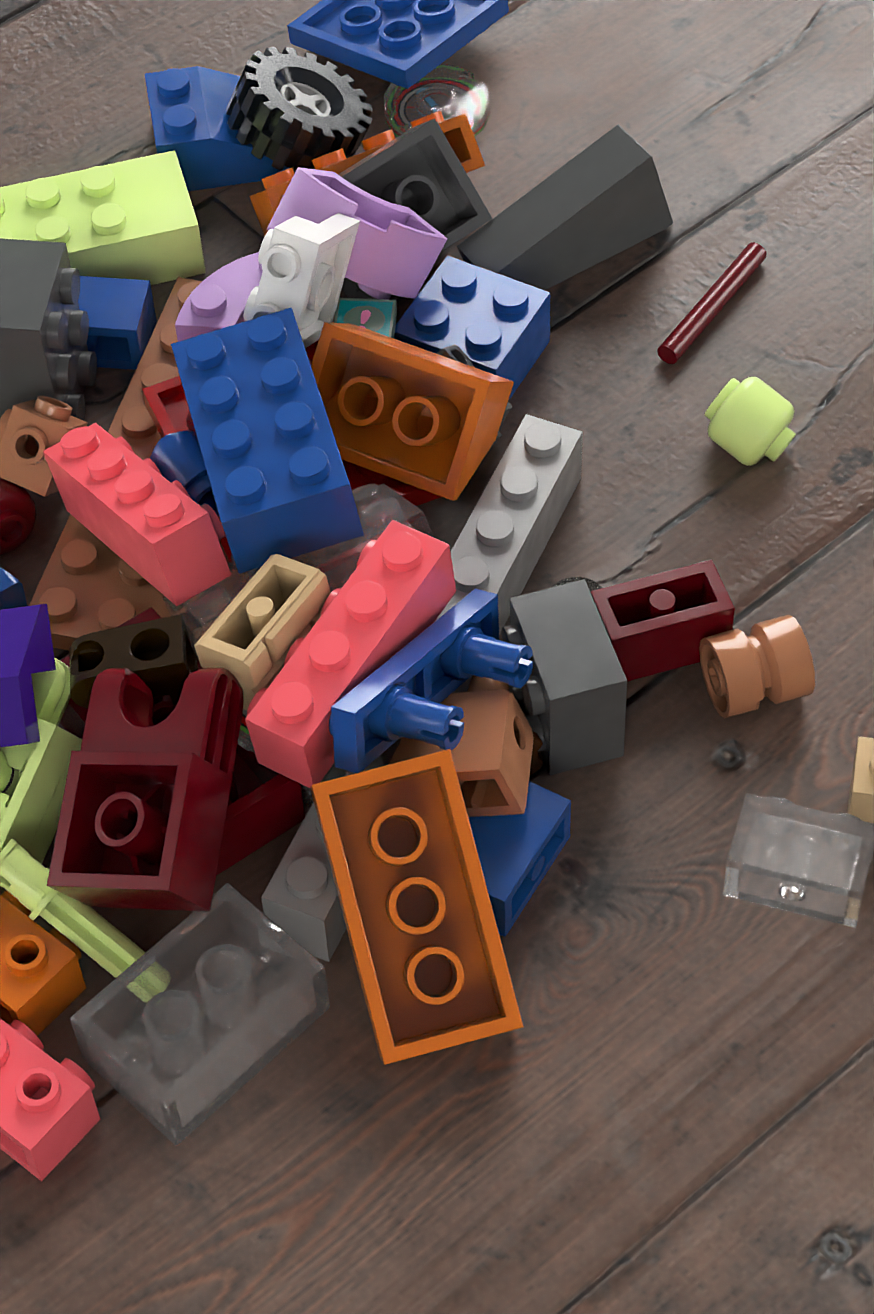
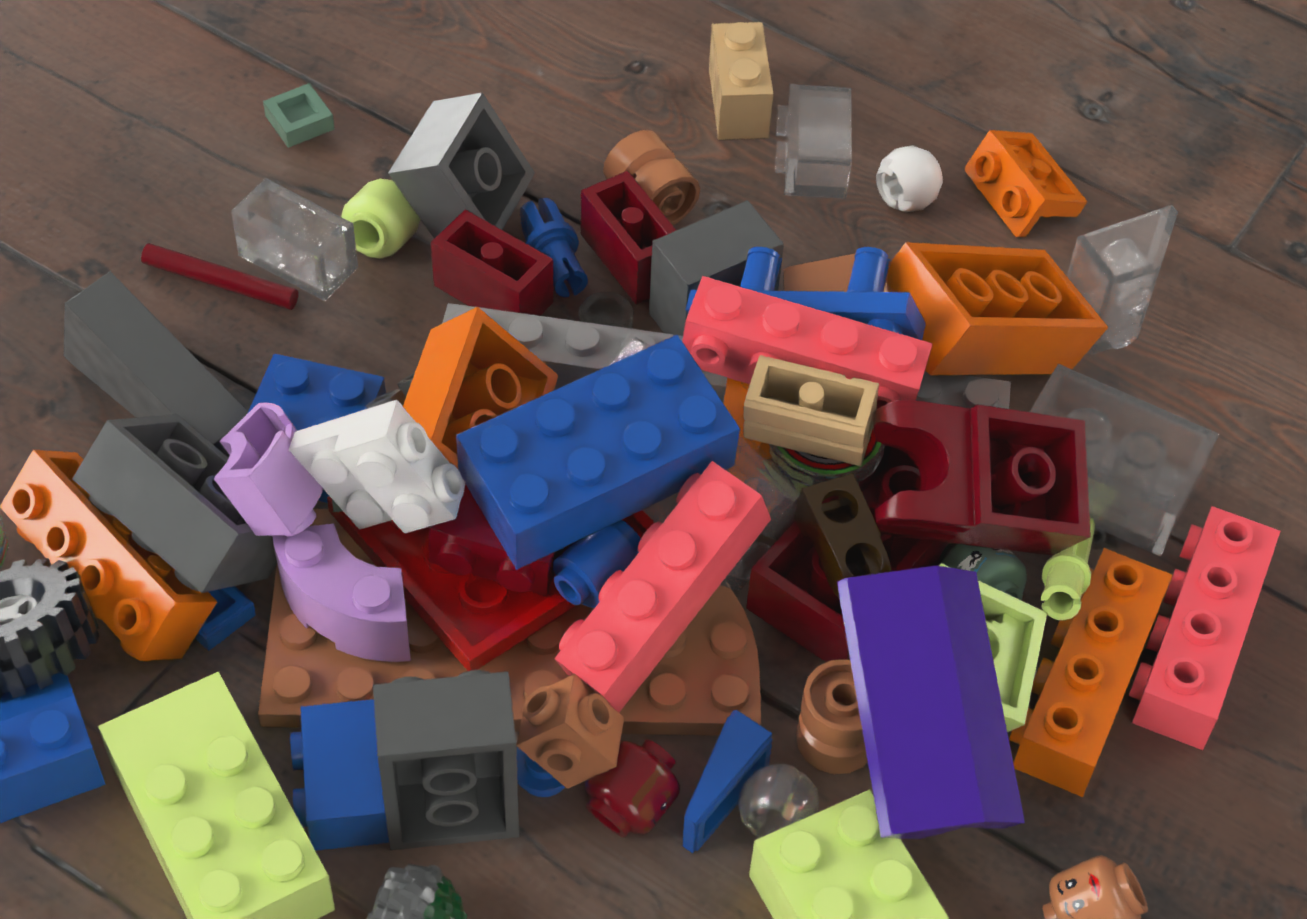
camera: 110 degrees left, 0 degrees up
(452, 1106) = (1119, 271): none -> clear slope
(636, 491) = (491, 267): none -> dark red brick
(684, 549) = (557, 239): none -> blue arm
(694, 1090) = (1022, 180): none -> orange bracket
(713, 944) = (909, 179): none -> white piece
(721, 338) = (295, 239): none -> clear brick
(773, 470) = (461, 162): none -> dark grey brick

